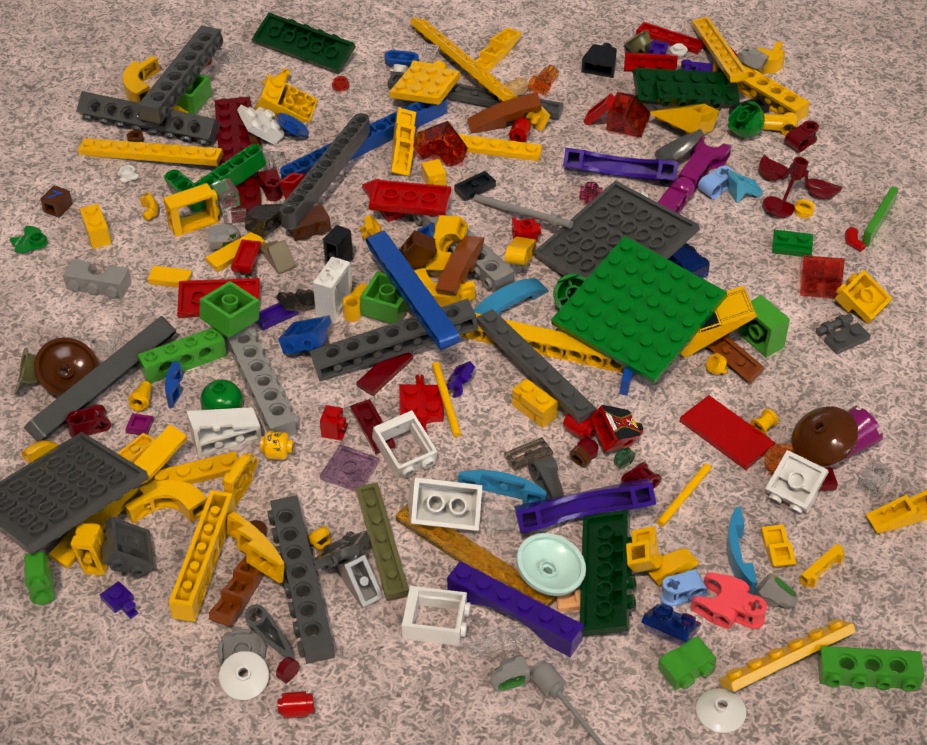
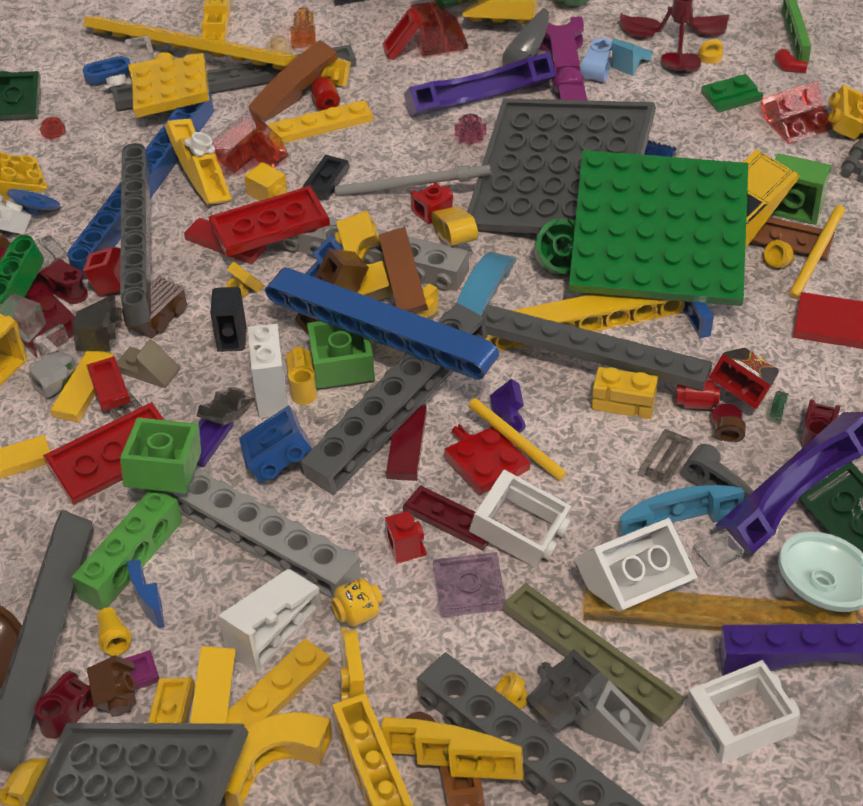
camera: 30 degrees left, 0 degrees up
(116, 423) = (112, 684): none -> reddish brown brick
(221, 395) = (227, 579): green cylinder -> none
(407, 131) = (200, 144): none -> white plate
(740, 373) = (817, 251): none -> yellow bar

